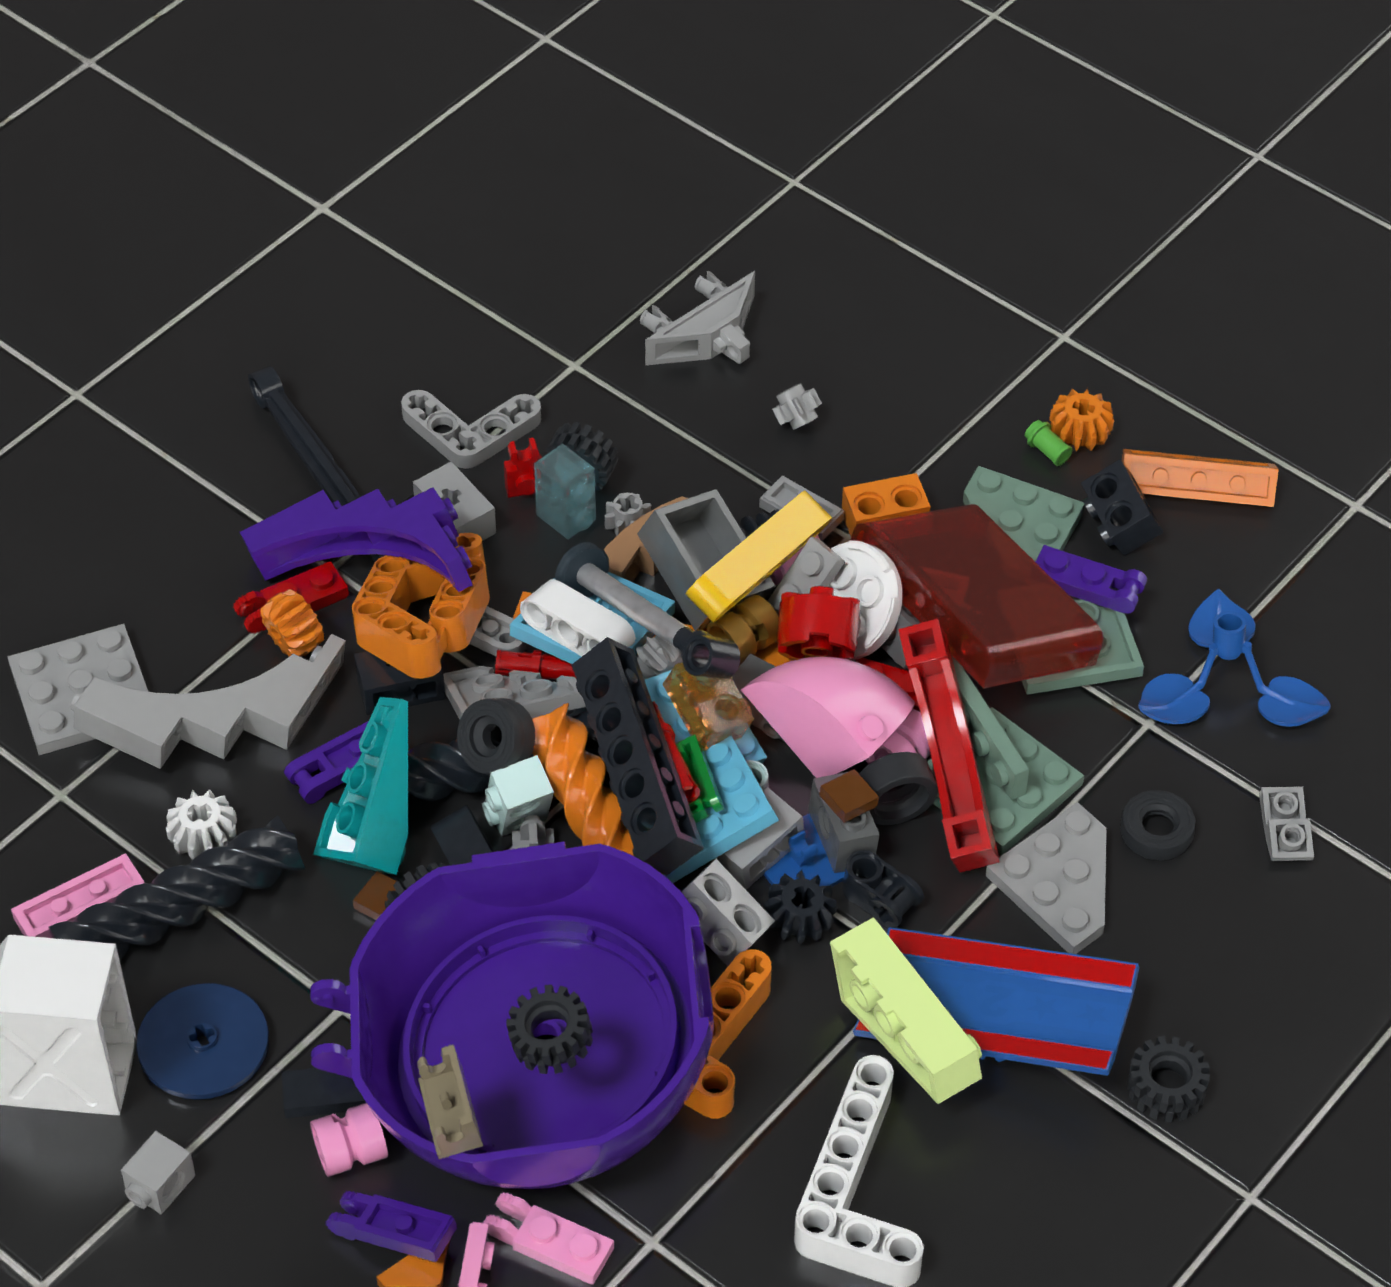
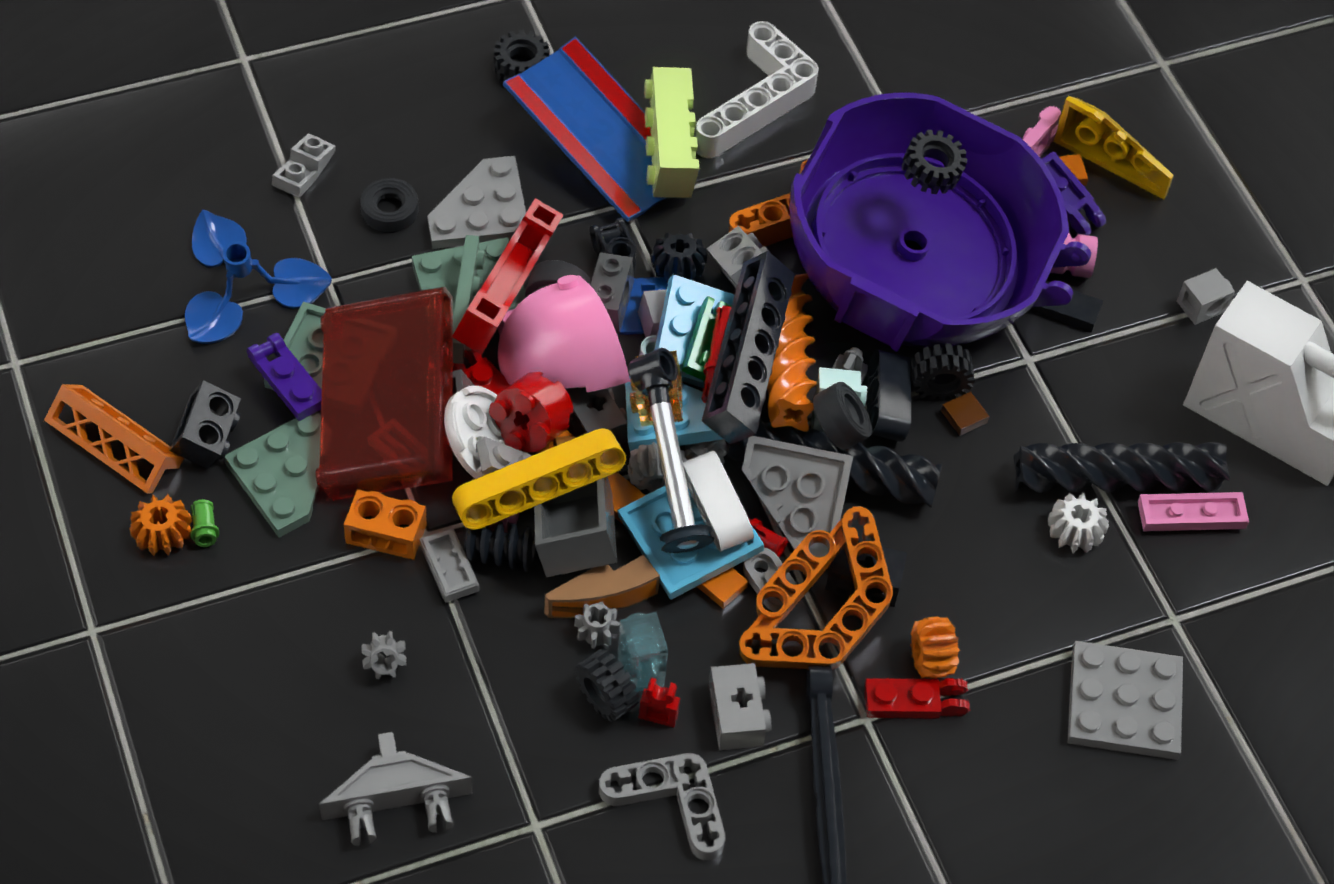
camera: 155 degrees left, 5 degrees up
(154, 723) = (986, 592): light grey arch -> none
(177, 1060) = (1116, 381): dark blue piece -> none
(322, 530) = (829, 684): dark purple arch -> none
(330, 759) = (942, 528): dark purple plate -> none
(372, 815) = (955, 447): teal wedge -> none
(448, 1105) = (1020, 162): dark tan hinge -> none
(849, 795) = (608, 271): reddish brown tile -> none

